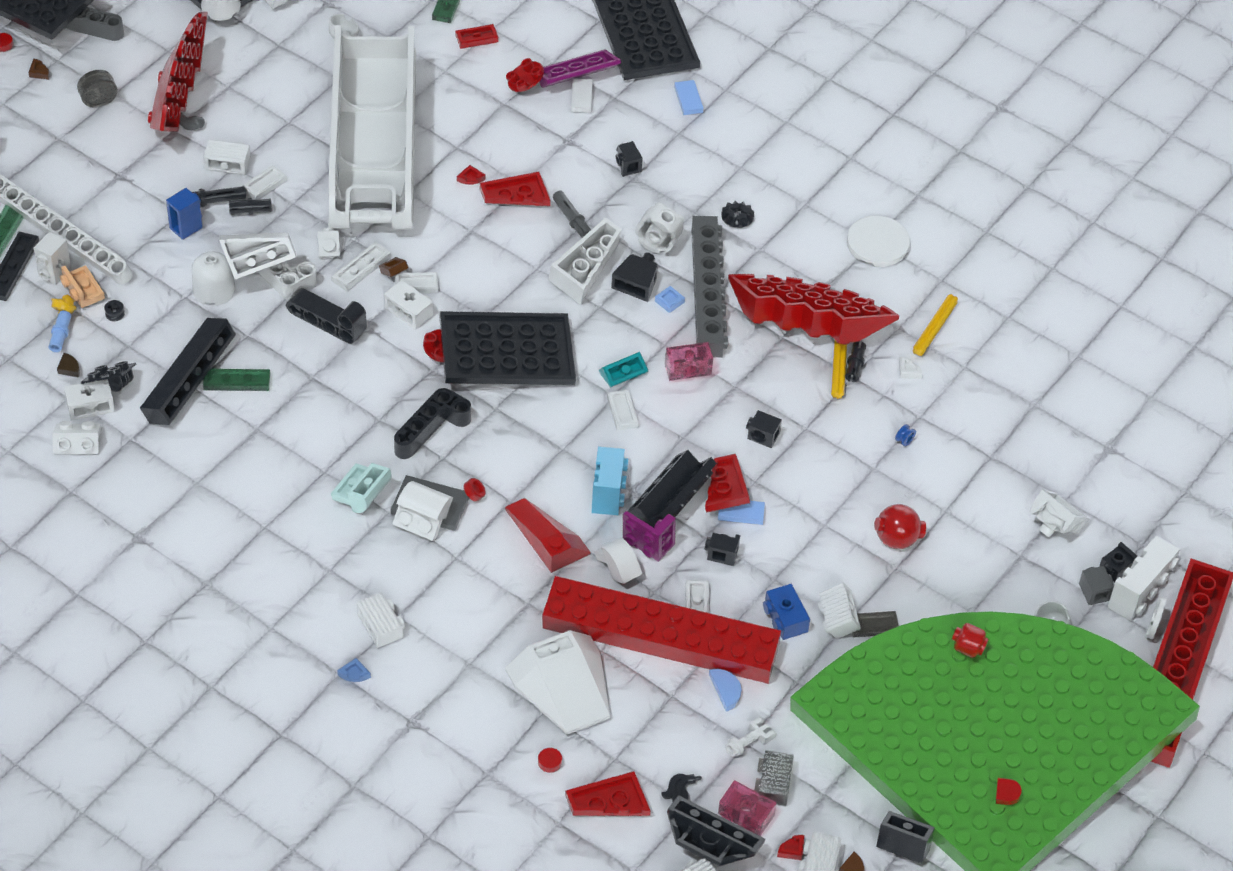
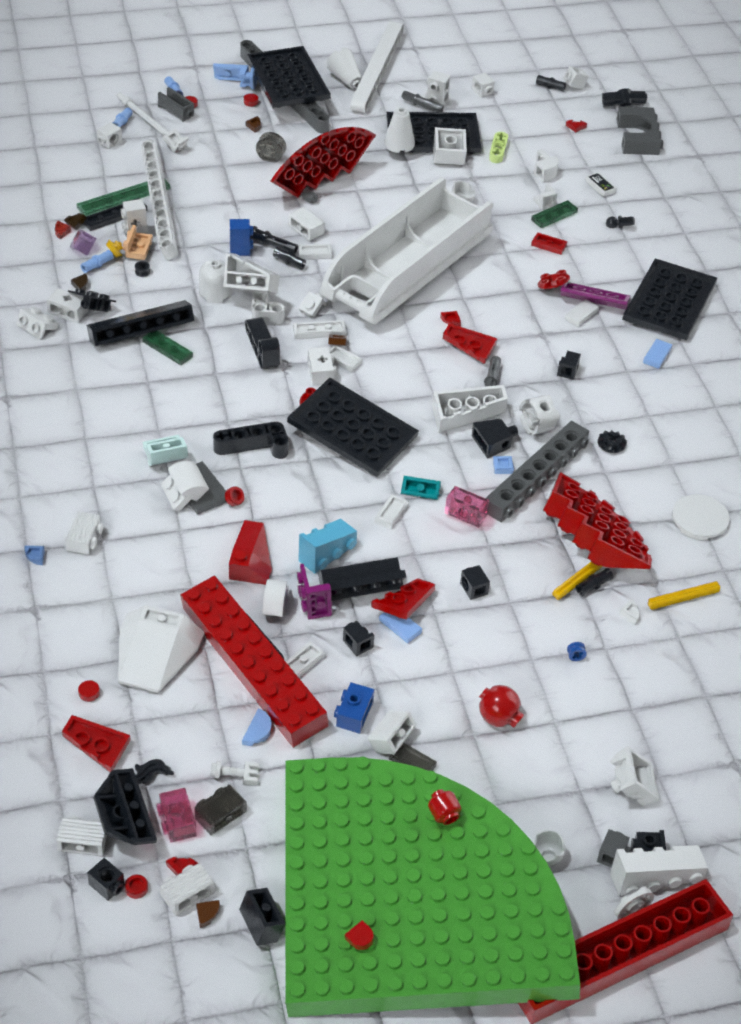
camera: 40 degrees right, 5 degrees down
(21, 319) = (83, 242): none -> clear purple panel

